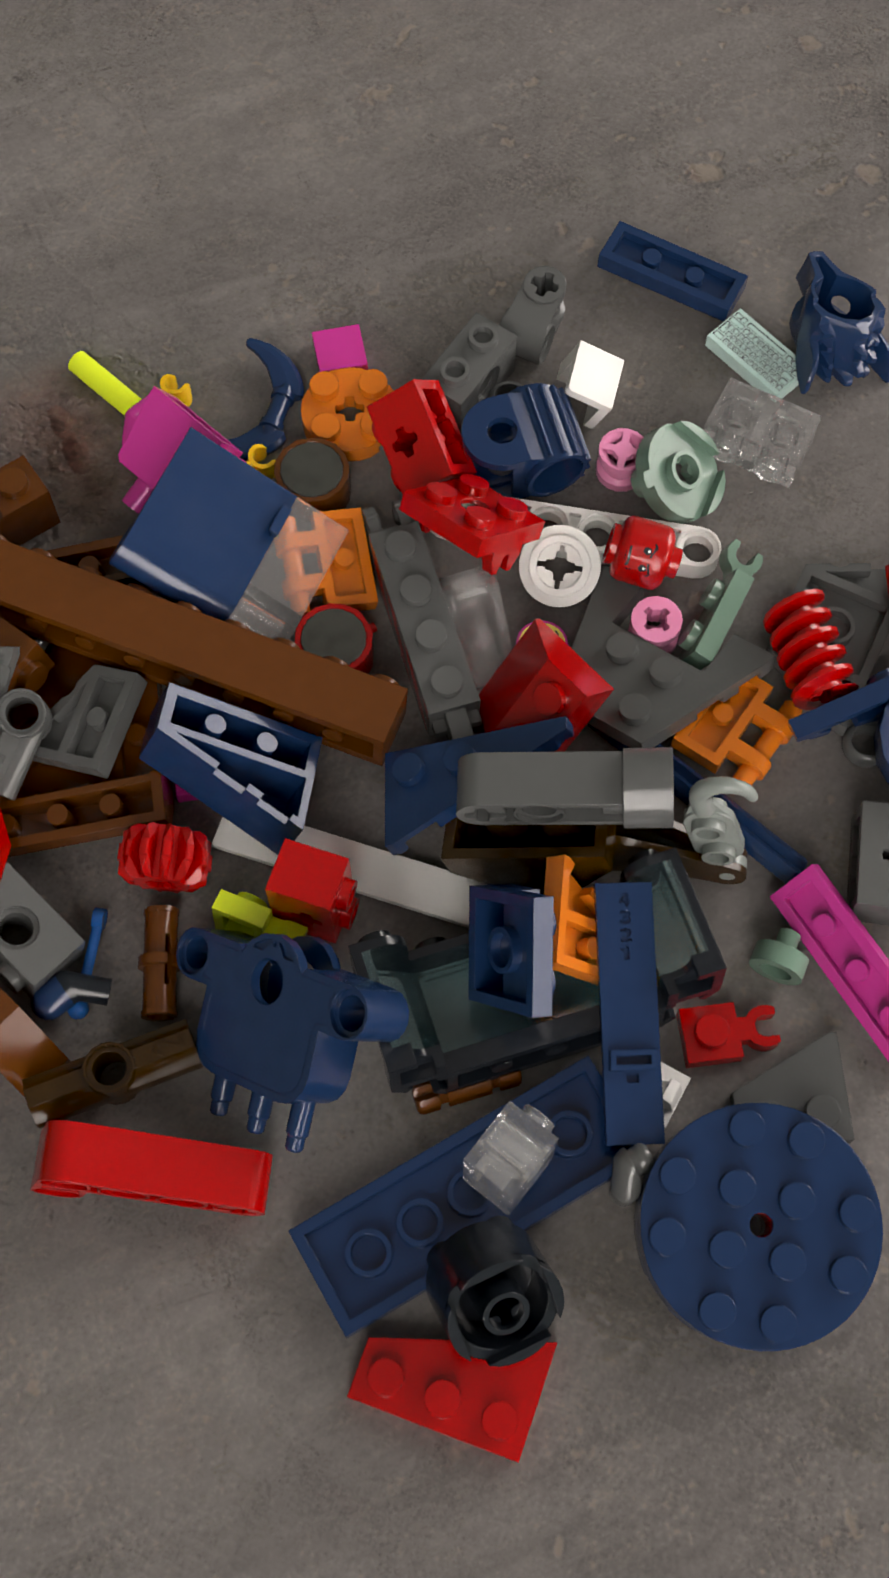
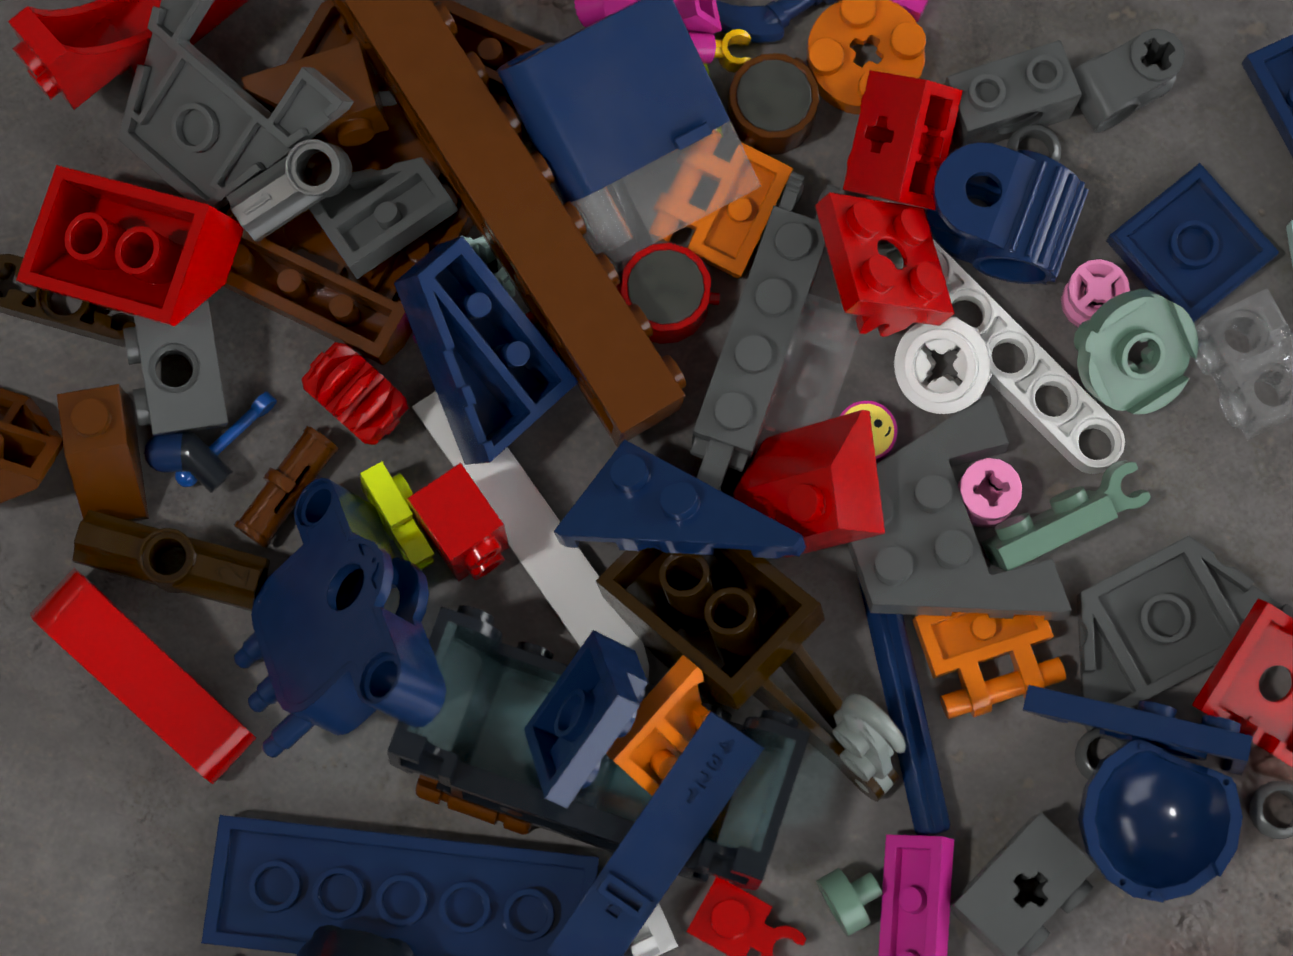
camera: 35 degrees right, 10 degrees up
(510, 1155) = (445, 901): clear brick -> none
(568, 788) = (800, 650): dark grey beam -> none
(592, 379) = (1125, 191): white panel -> none
(642, 552) = (1026, 412): red head -> none
(658, 388) = (1192, 244): none -> dark blue tile
(805, 649) = (1105, 628): red piece -> none

